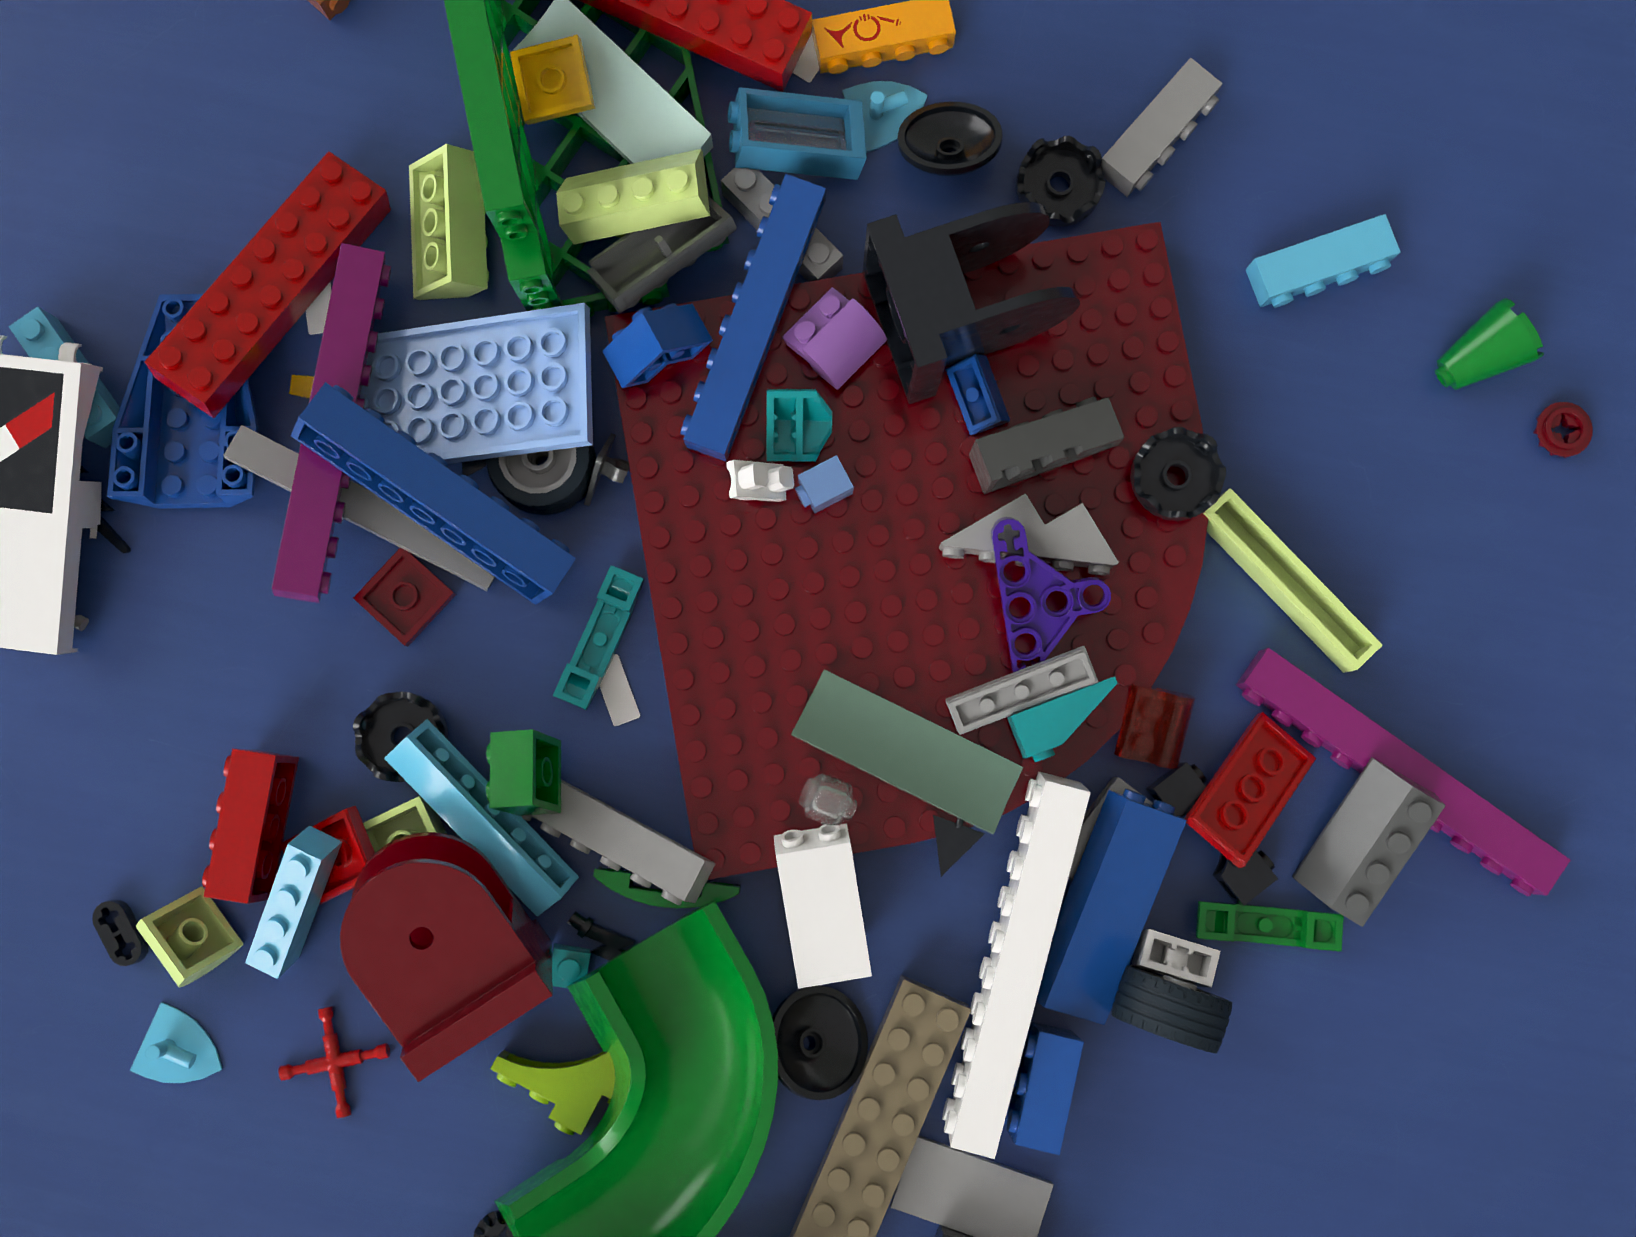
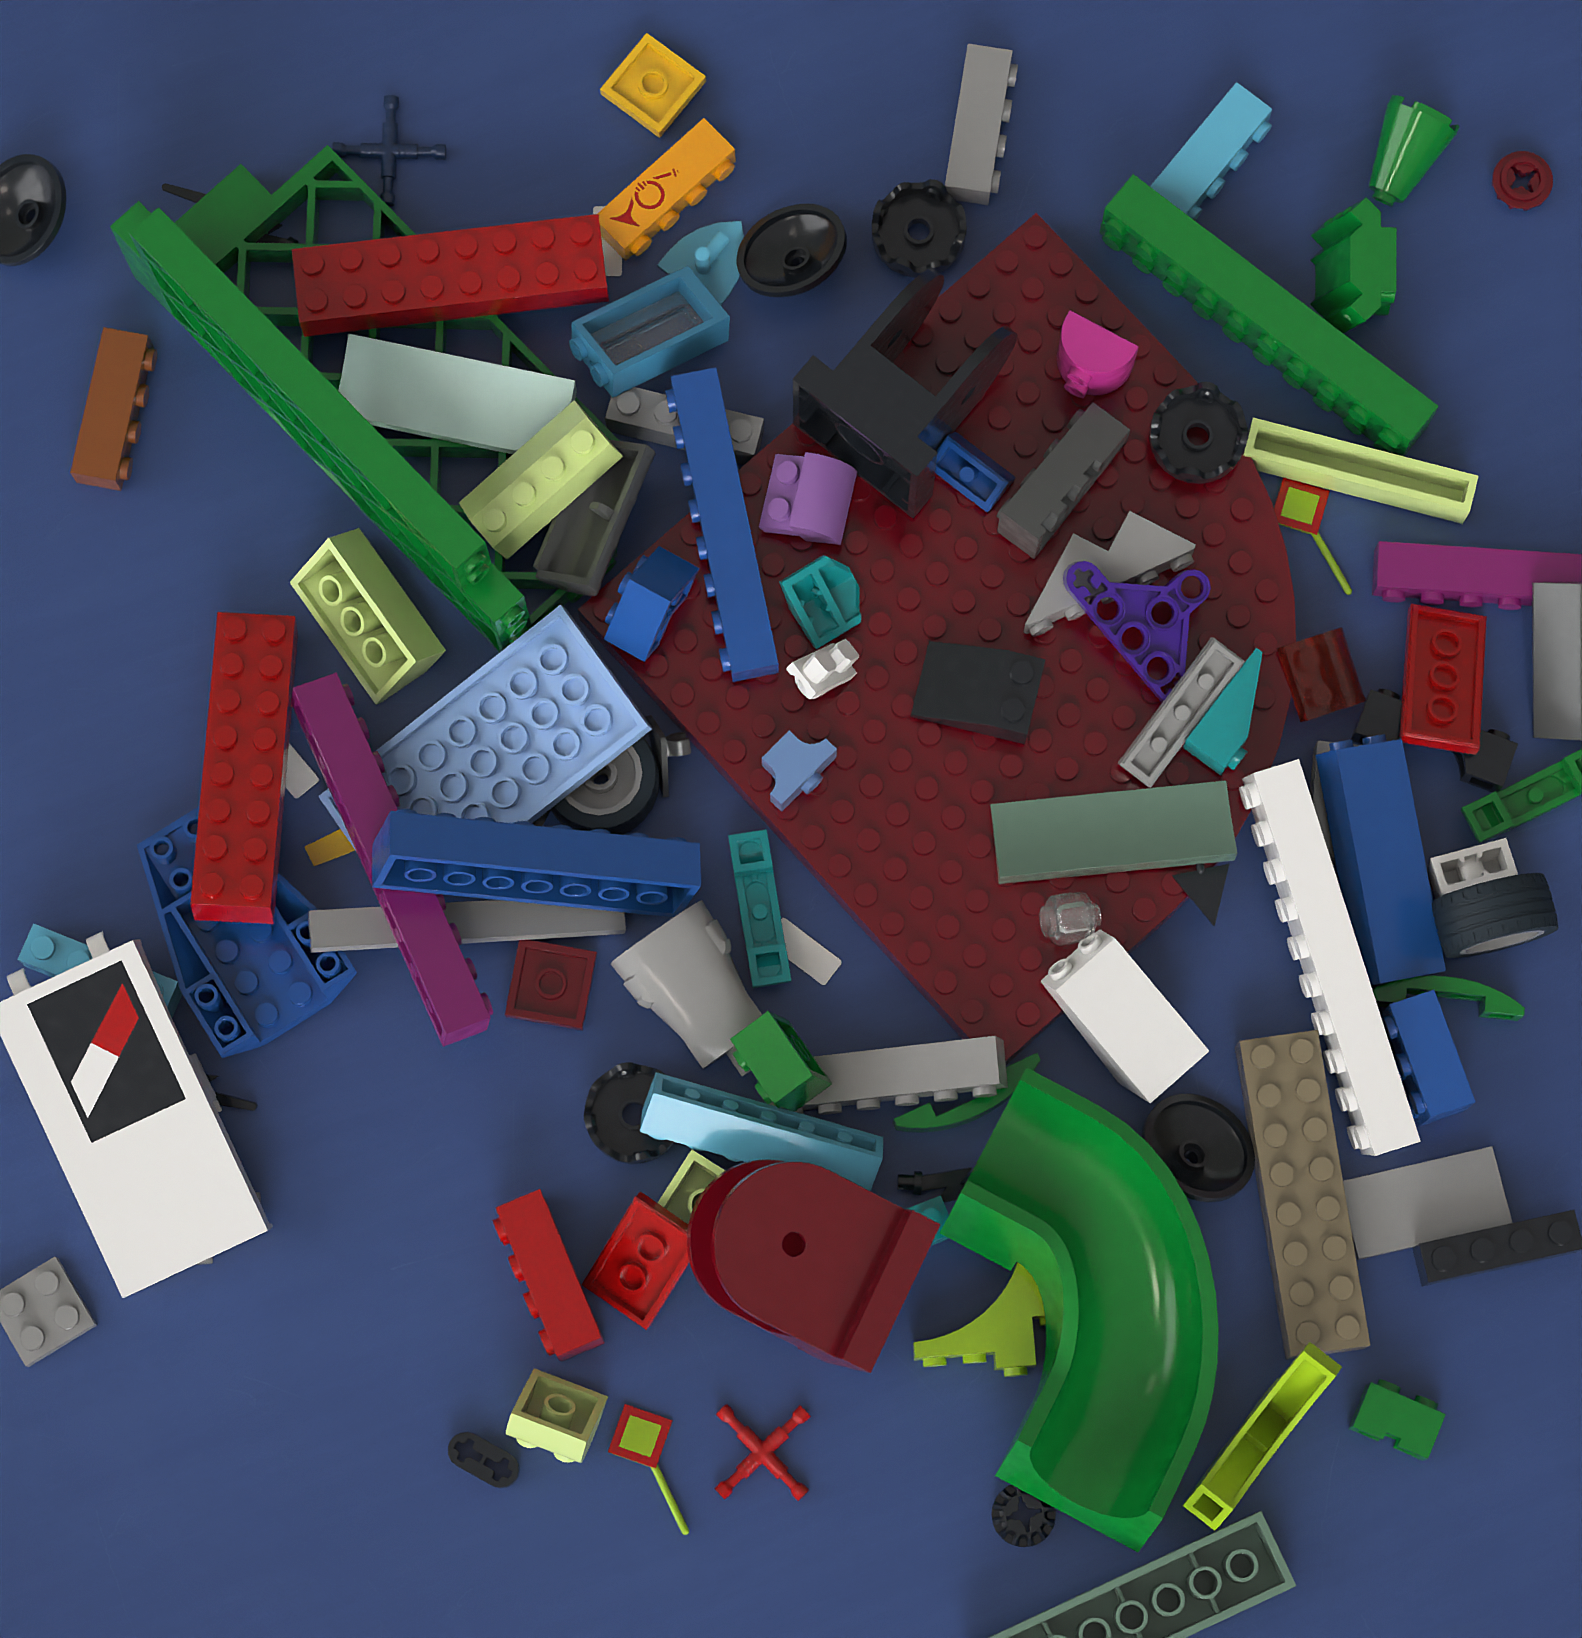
camera: 30 degrees left, 5 degrees down
(176, 1049) = (605, 1536): medium azure shield -> none
(249, 993) = (641, 1439): none -> piece
(293, 901) = (637, 1317): medium azure brick -> none
(506, 665) = (691, 983): none -> light grey torso
(552, 79) = (400, 412): yellow plate -> none
(688, 545) = (796, 767): none -> medium blue brick
(824, 485) = (884, 637): medium blue brick -> none
(873, 572) = (978, 689): none -> black slope
(1123, 1068) = (1492, 1002): none -> green slope
(1131, 361) = (1093, 357): none -> dark pink brick
(1222, 583) = (1302, 508): none -> piece
(1290, 415) = (1265, 318): none -> green piece
(1386, 418) = (1354, 267): none -> green slope

